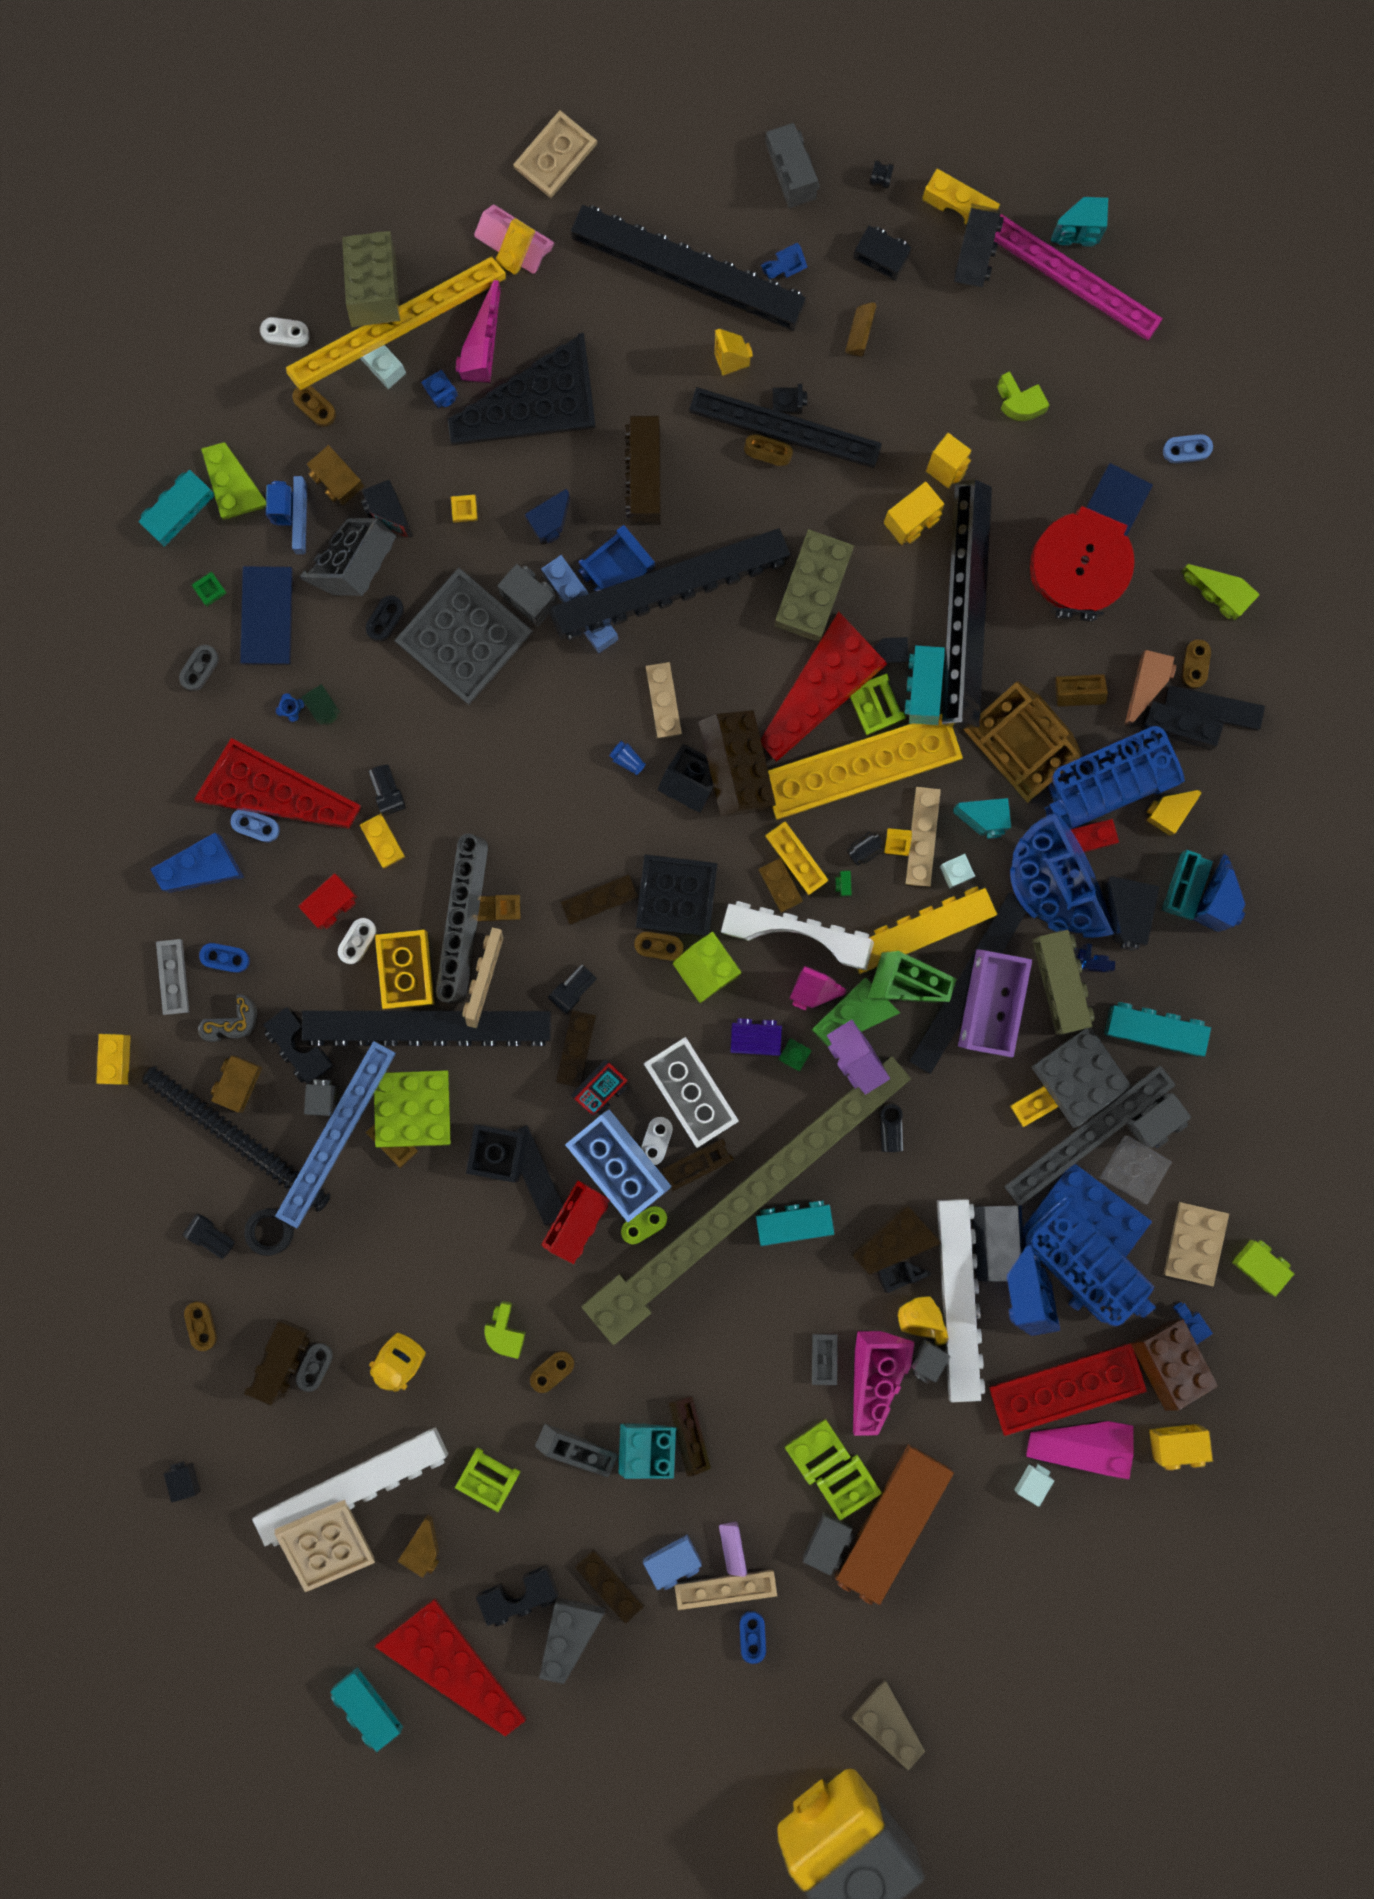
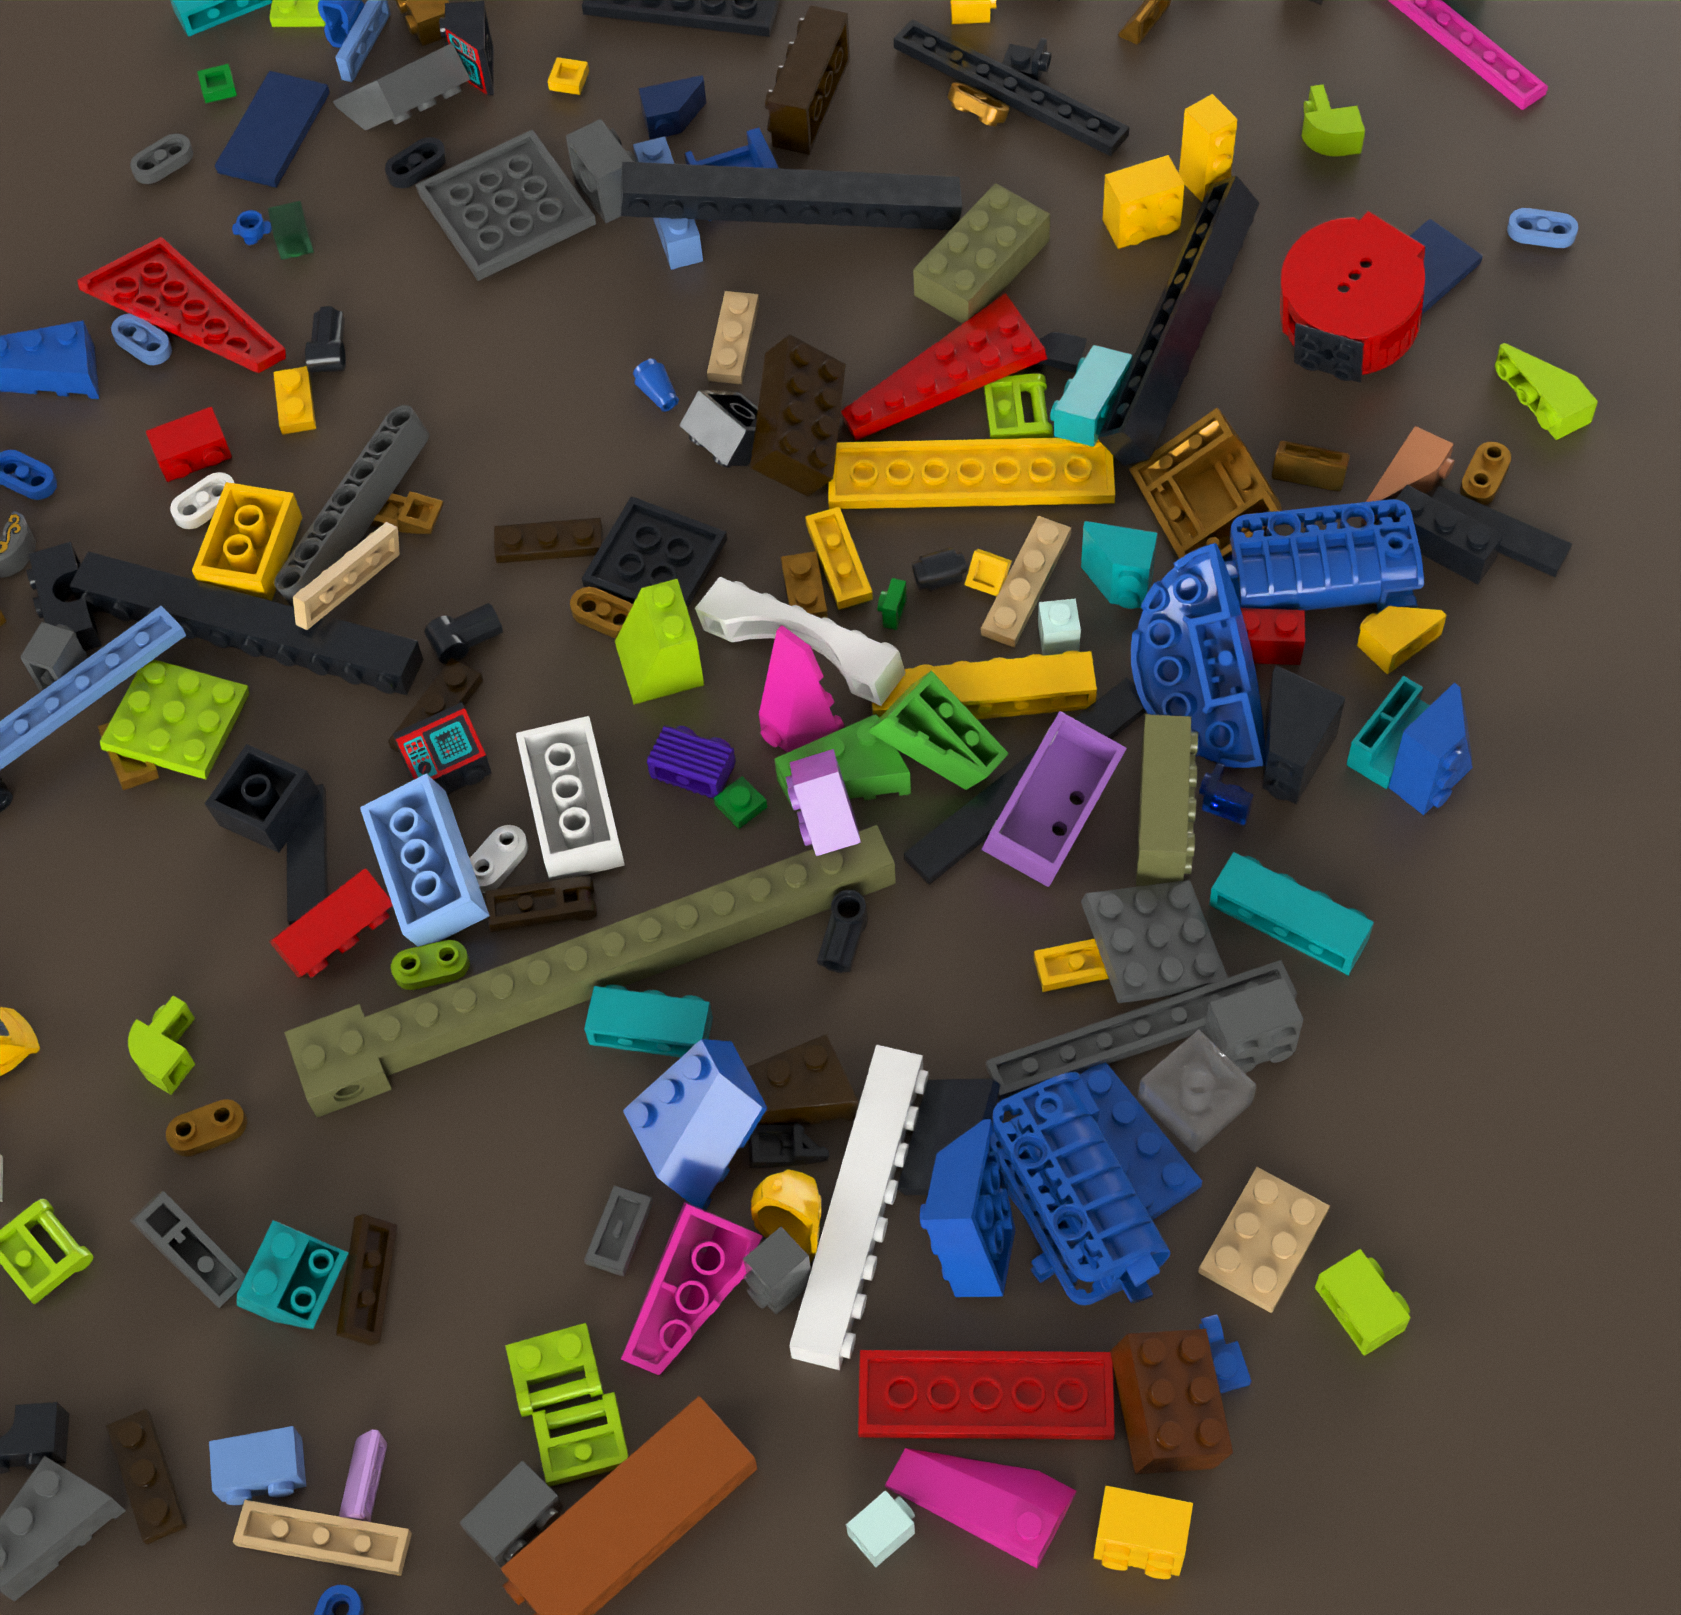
camera: 20 degrees right, 25 degrees down
(851, 1285) = (697, 1118): none -> wedge

